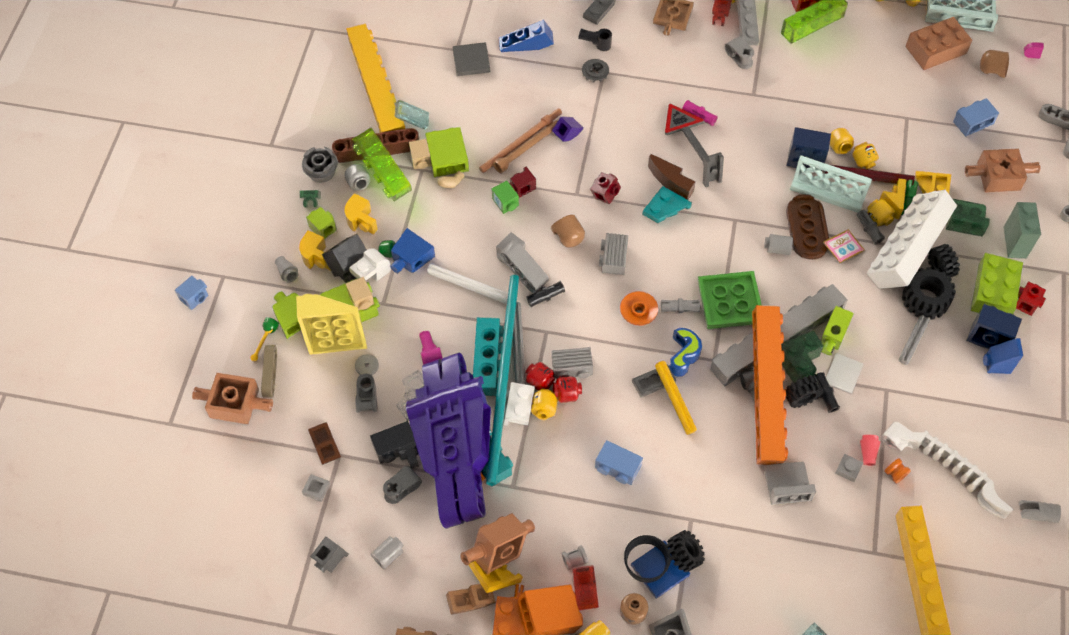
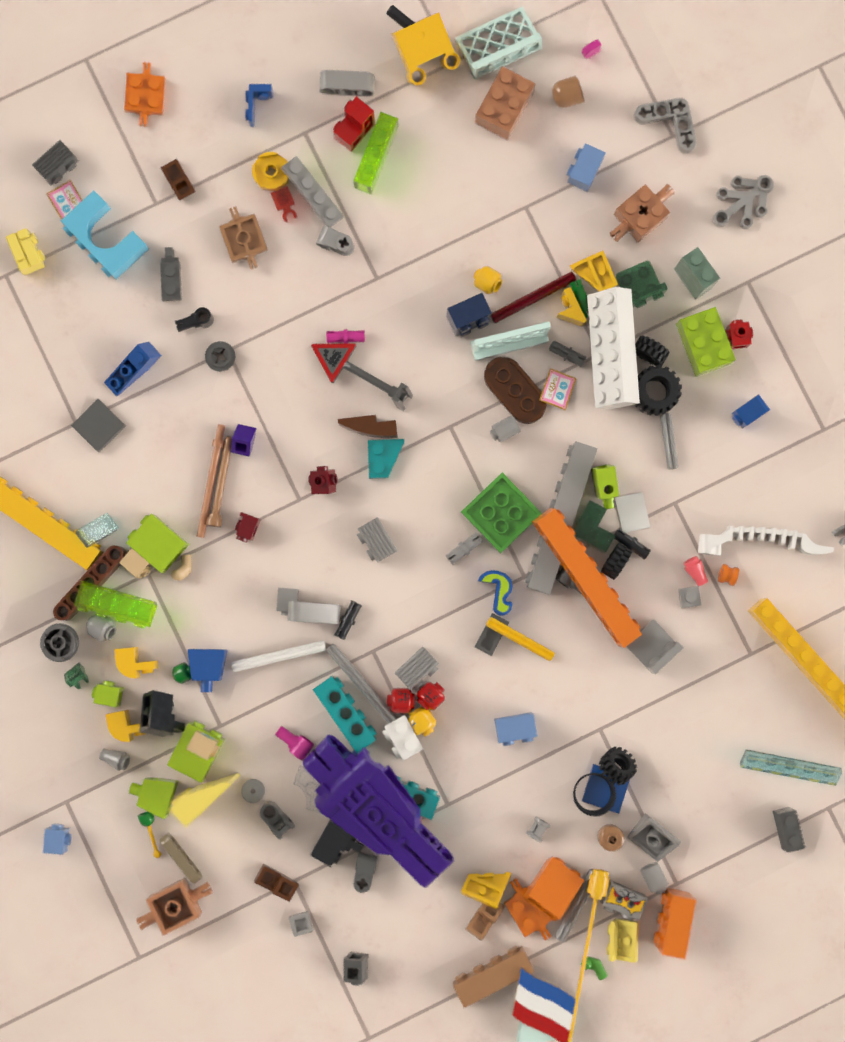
camera: 40 degrees left, 25 degrees up
(371, 265) = (186, 706): white brick -> none
(387, 552) = (397, 932): light grey brick -> none
(498, 543) = (479, 868): nougat brick -> none
(502, 382) = (374, 726): teal piece -> none
(505, 197) = (244, 552): bright green brick -> none
(569, 231) = (325, 548): medium nougat helmet -> none
(585, 587) = (564, 849): clear red slope -> none
(639, 301) = (444, 575): orange dish -> none
(865, 155) = (518, 281): yellow head -> none
(881, 212) = (567, 333): yellow head -> none
(993, 327) = (729, 390): dark blue brick -> none

